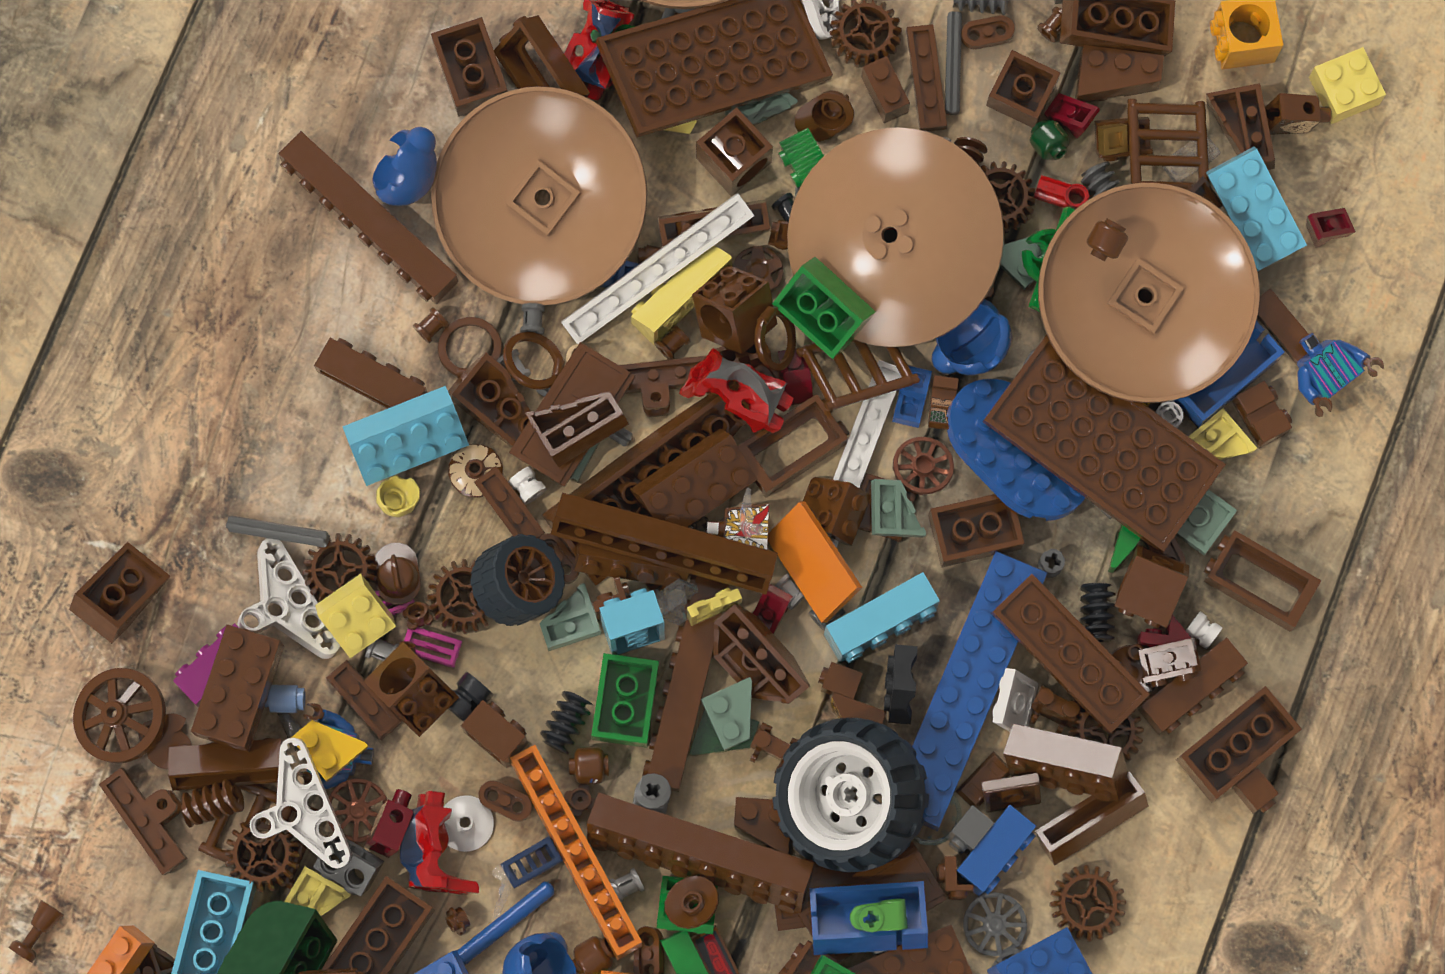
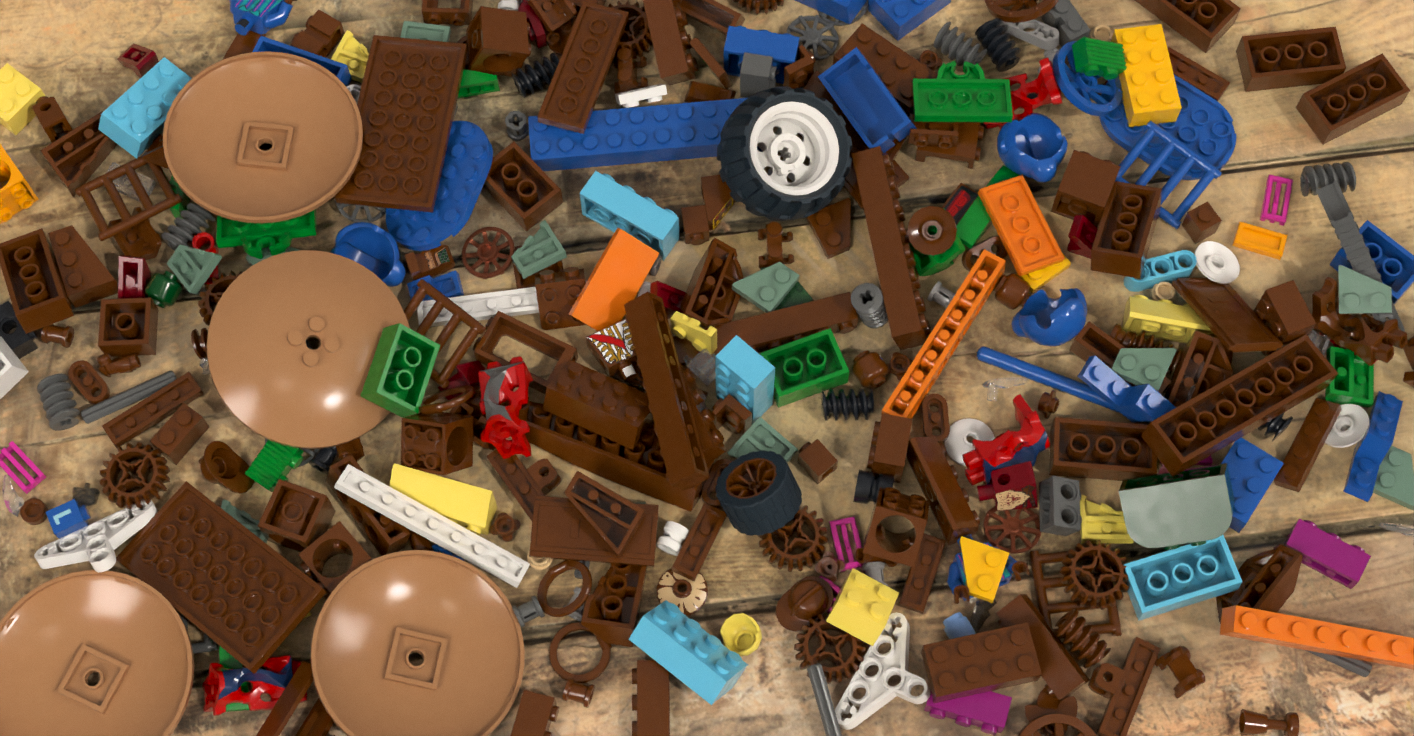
camera: 115 degrees left, 10 degrees down
(132, 882) = (1183, 669): none -> reddish brown piece
(295, 794) = (1037, 563): white beam -> none
(428, 761) = (941, 488): none -> reddish brown slope
(527, 661) = (817, 460): none -> reddish brown brick
(551, 849) = (967, 361): dark blue slope -> none
(628, 333) = (504, 519): none -> reddish brown plate
(669, 192) = (331, 543): none -> reddish brown brick
(672, 342) = (497, 488): reddish brown bush -> none
(746, 518) = (608, 344): clear bar -> none
(759, 265) = (386, 456): reddish brown wheel -> none
(884, 916) = (863, 85): bright green piece -> none
(900, 684) = (674, 173): black brick -> none
(992, 66) = (122, 364): none -> reddish brown arm
(1053, 173) = (193, 266): none -> sand green wing
(1107, 239) = (236, 174): reddish brown head -> none
(1112, 139) = (140, 236): pearl gold tile -> none

